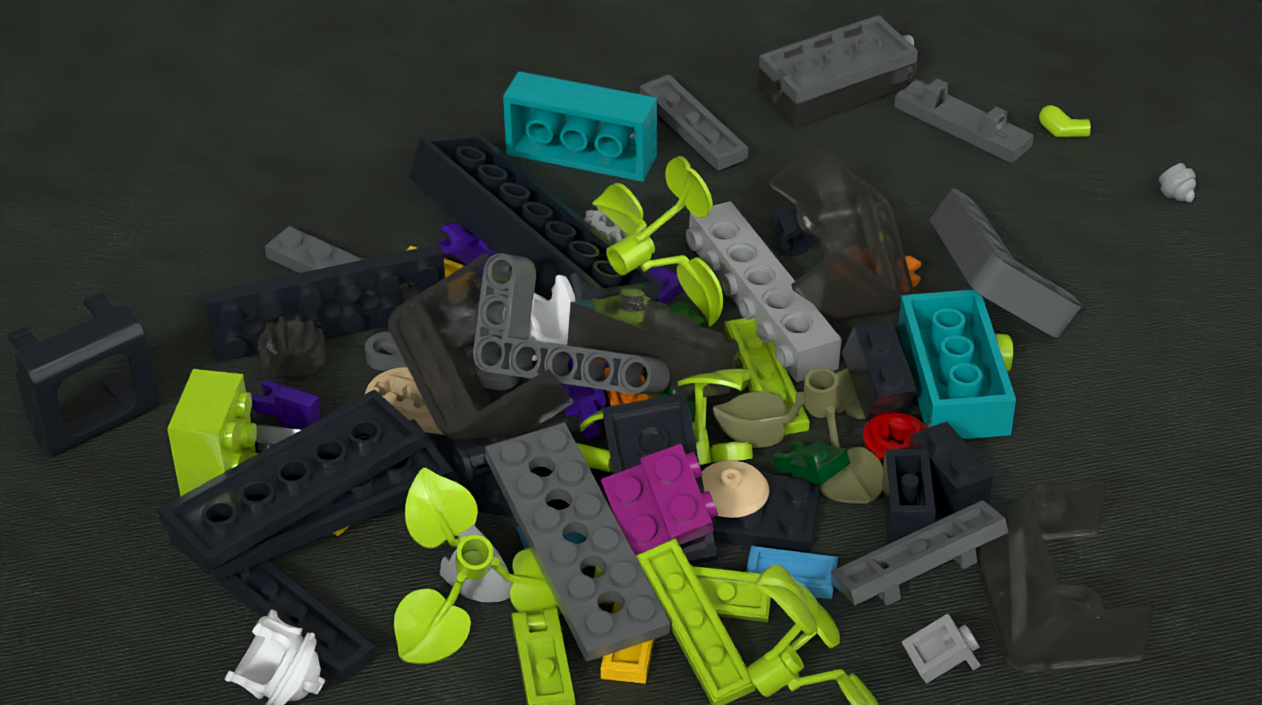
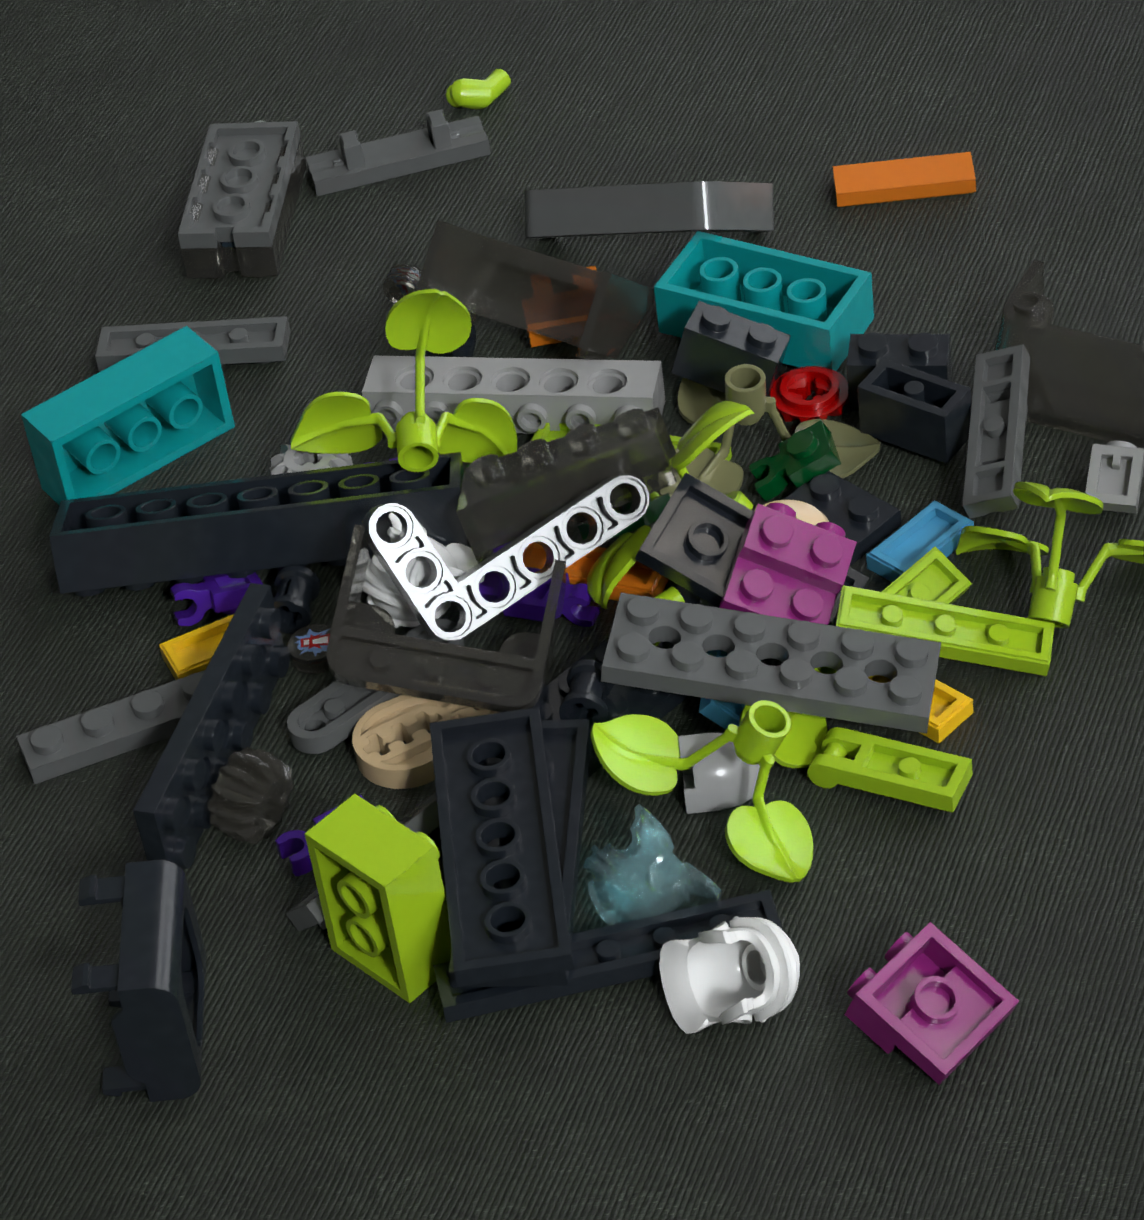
camera: 50 degrees left, 0 degrees up
(344, 576) = (644, 876): none -> clear light blue helmet
(1178, 183) = (647, 55): light grey plate -> none
(1179, 380) = (904, 179): none -> orange tile

